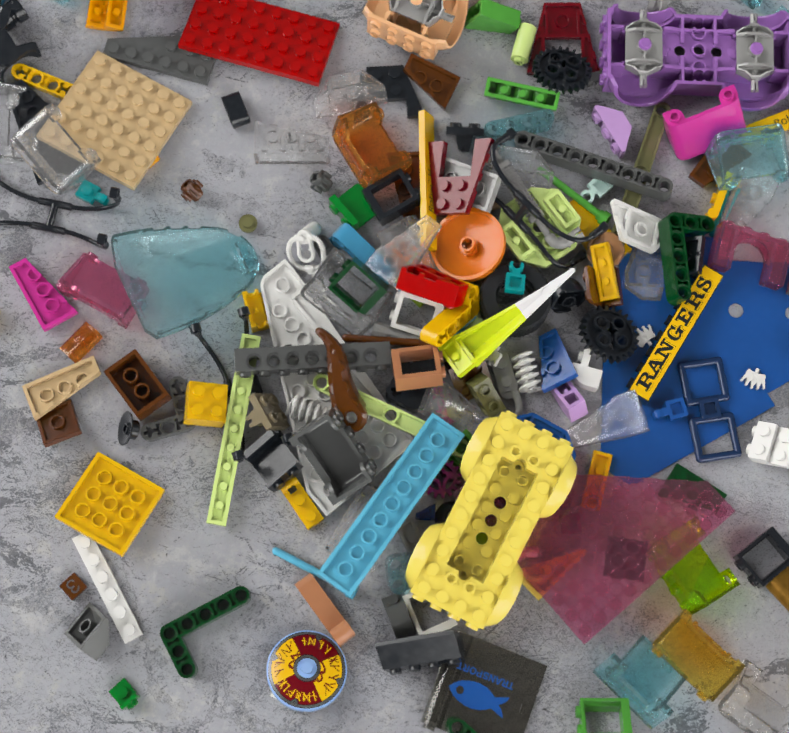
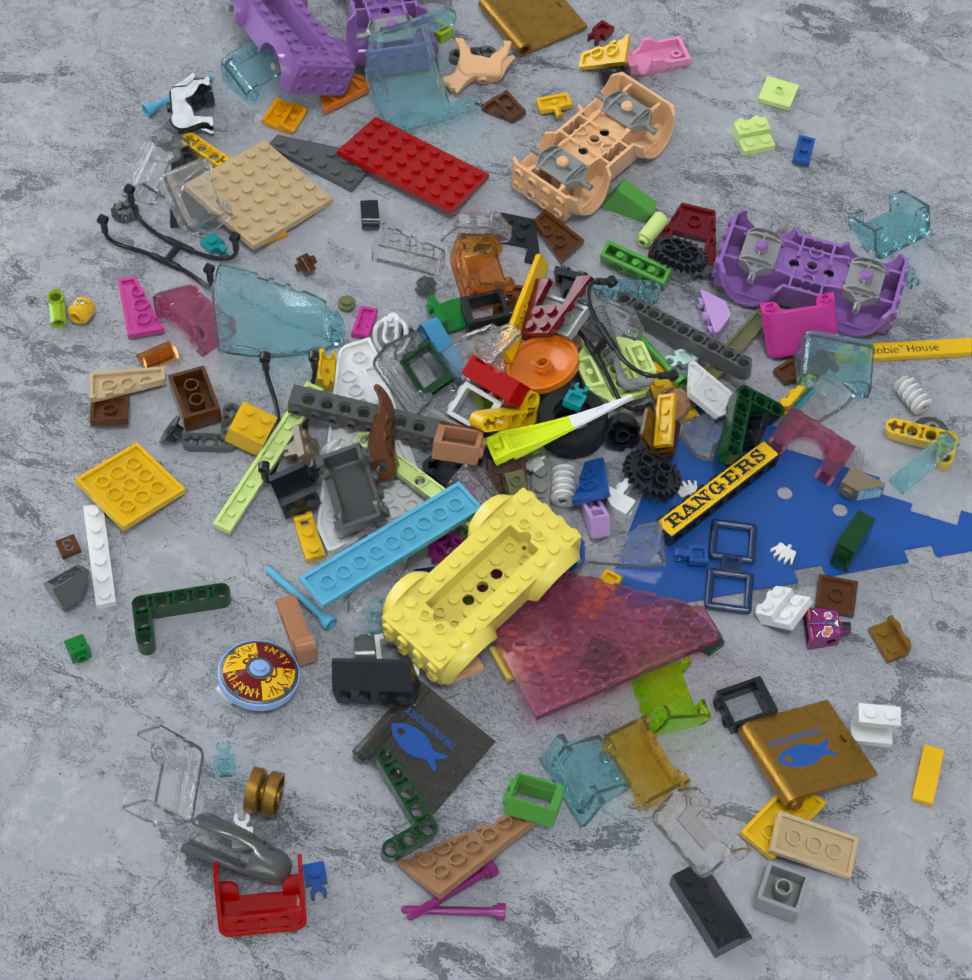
camera: 15 degrees right, 20 degrees down
(273, 241) = (364, 322): none -> dark pink plate

